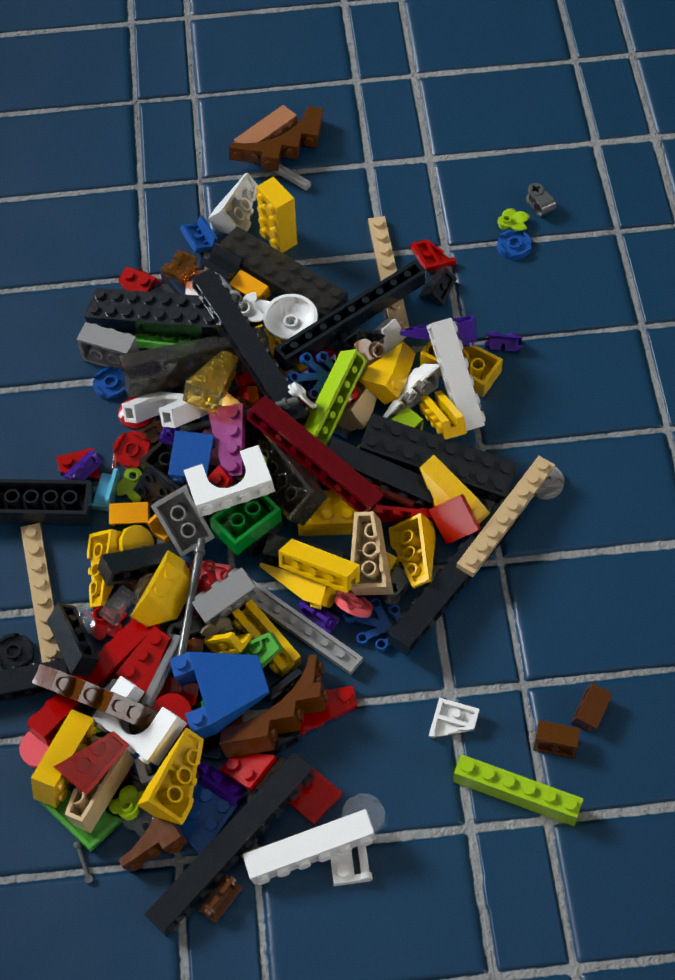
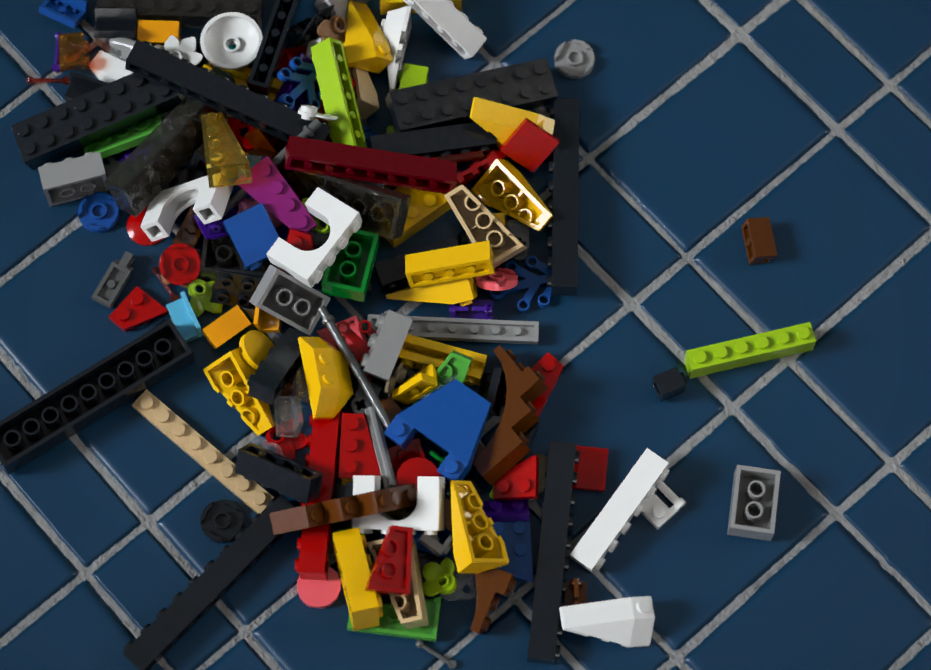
camera: 40 degrees left, 10 degrees up
(81, 434) = (114, 281): none -> dark grey hinge
(84, 467) = (147, 311): dark purple hinge -> none
(136, 280) = (39, 94): red wing -> none
(237, 934) = (620, 620): none -> white wedge
(371, 804) = (632, 449): clear tile -> none
(425, 917) = (754, 502): none -> light grey brick
(429, 773) = (669, 383): none -> black brick
(443, 415) = (447, 52): yellow brick -> none
(453, 718) = (652, 324): white wing -> none
(505, 516) = (570, 114): tan plate -> none
(556, 739) = (750, 286): reddish brown hinge -> none

